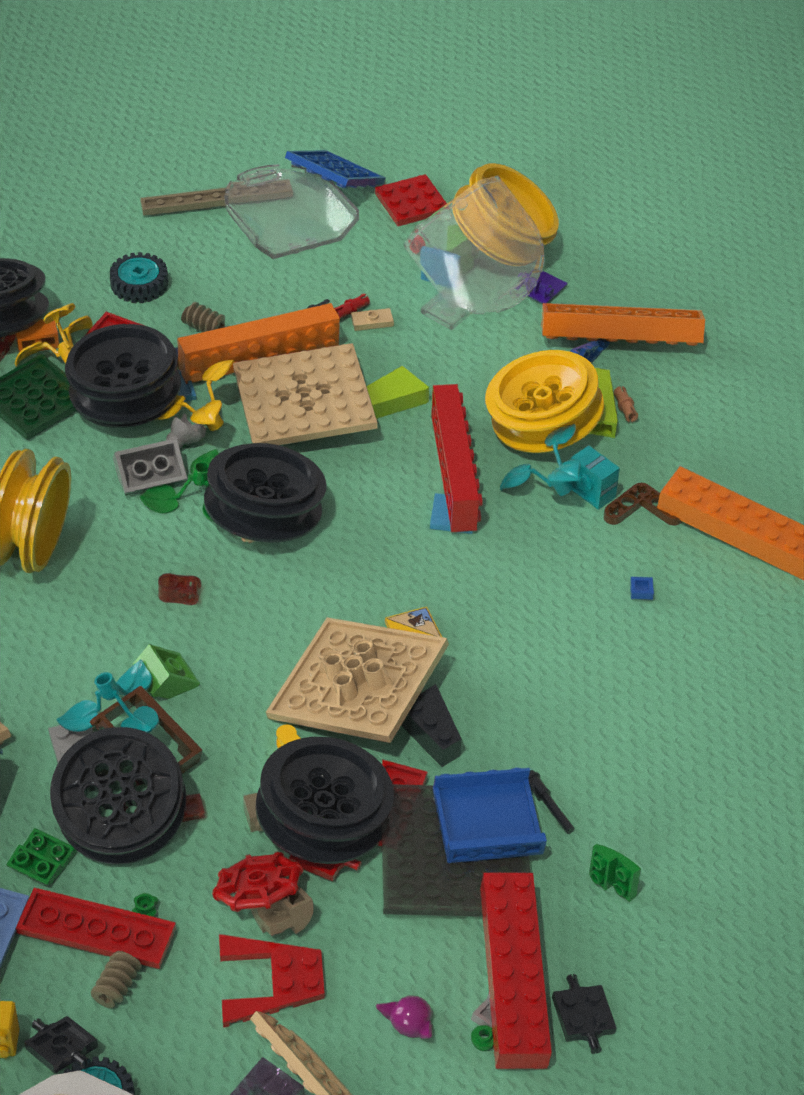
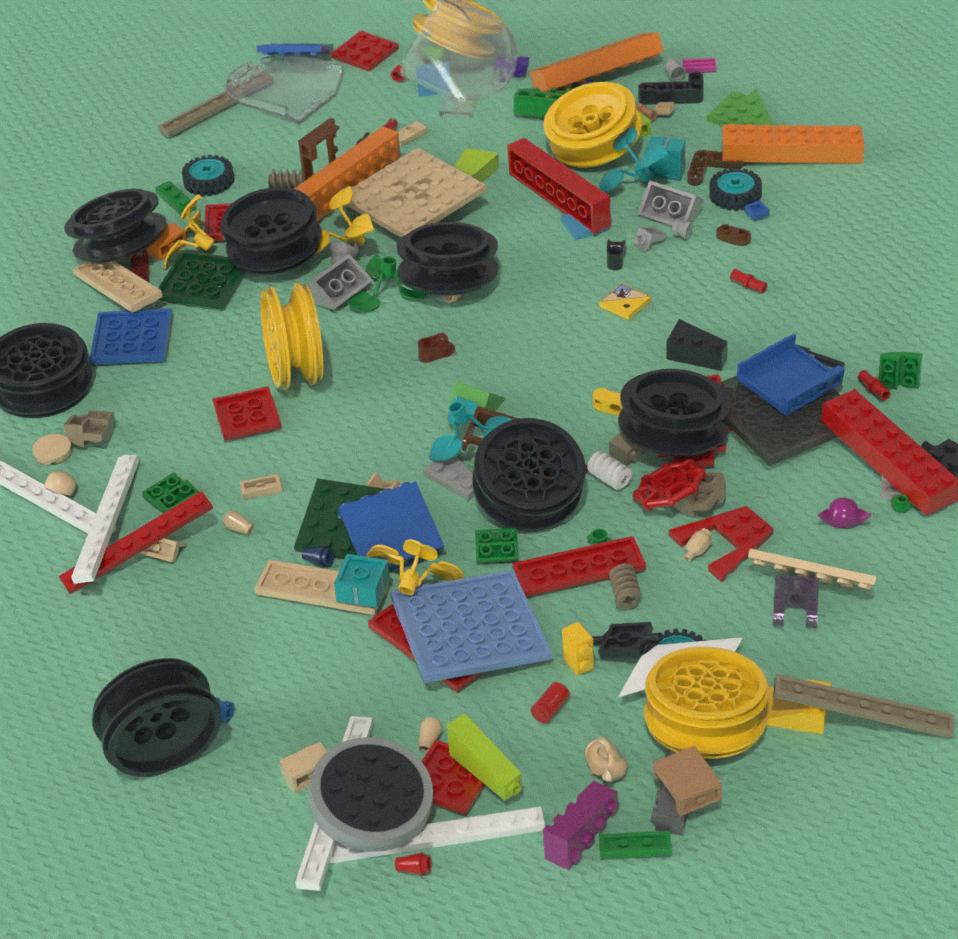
camera: 25 degrees left, 5 degrees down
(90, 289) = (173, 197): none -> green plate
(219, 830) = (609, 470): none -> white piece
(233, 968) = (697, 544): none -> tan plant
(234, 290) = (308, 144): none -> reddish brown hinge
(358, 679) = (621, 340): tan plate -> none
(450, 568) = (615, 254): none -> black piece
(502, 562) = (648, 235): none -> light grey bracket
(519, 340) = (535, 102): none -> green wedge
(543, 572) = (682, 228): none -> light grey wheel
(554, 537) = (669, 204): none -> light grey slope
(558, 672) = (748, 281): none -> red pin
(579, 872) = (873, 385): none -> red pin
(590, 603) = (733, 235): none -> reddish brown plate
(641, 550) = (735, 188): none -> black wheel
(652, 412) = (664, 108): none -> tan tile
(678, 398) = (677, 92): none -> black beam
(702, 370) = (675, 69): none -> light grey wheel
(731, 458) = (740, 110): none -> bright green wing
(736, 376) = (699, 65): none -> dark pink tile

